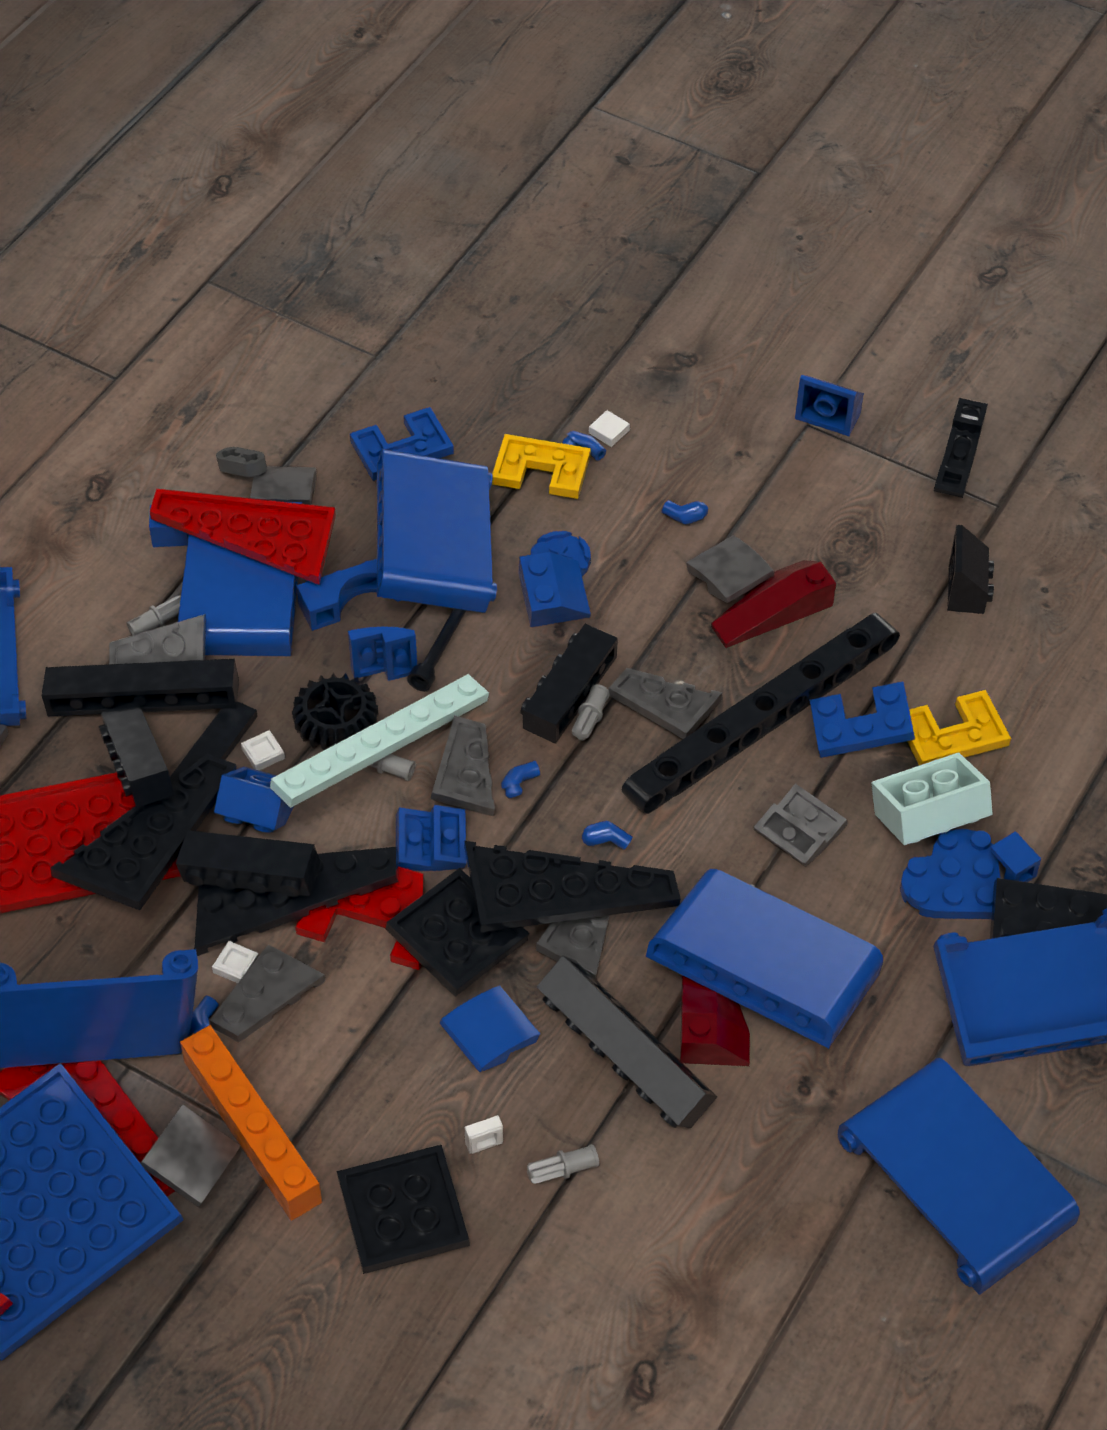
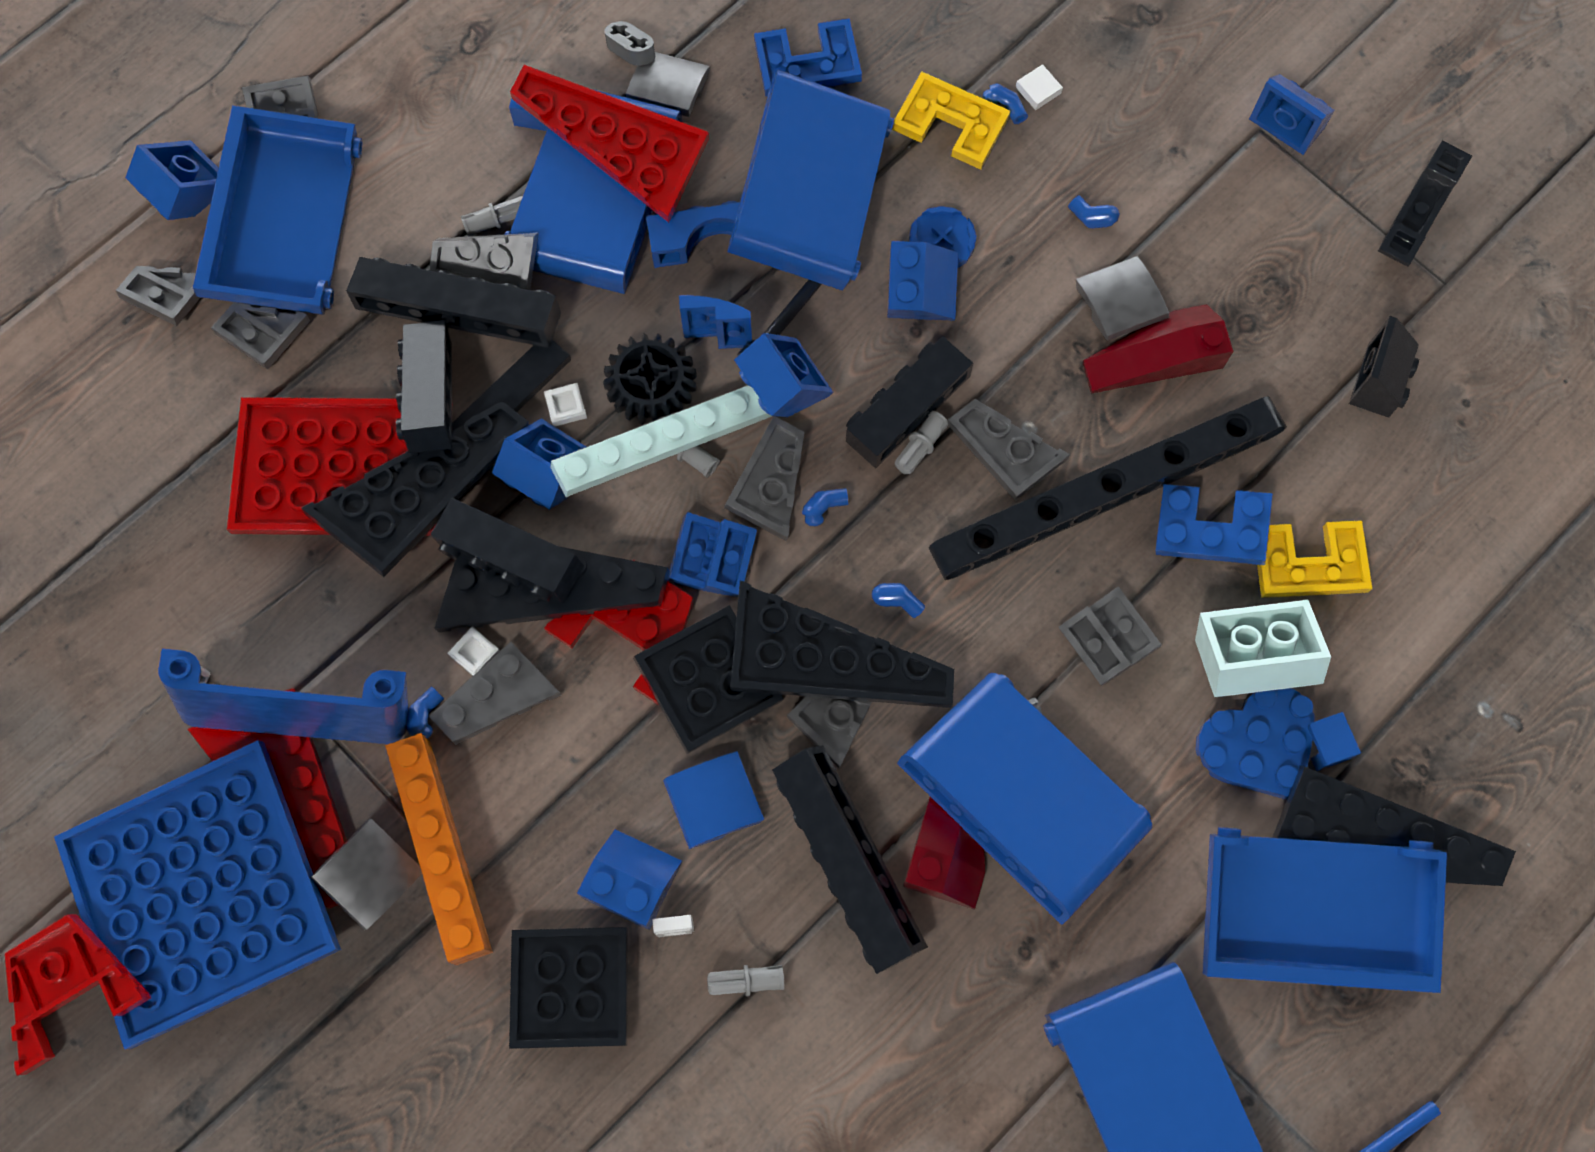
camera: 15 degrees right, 20 degrees up
(431, 1112) = (629, 879): none -> blue slope
(453, 678) = (782, 375): none -> blue slope

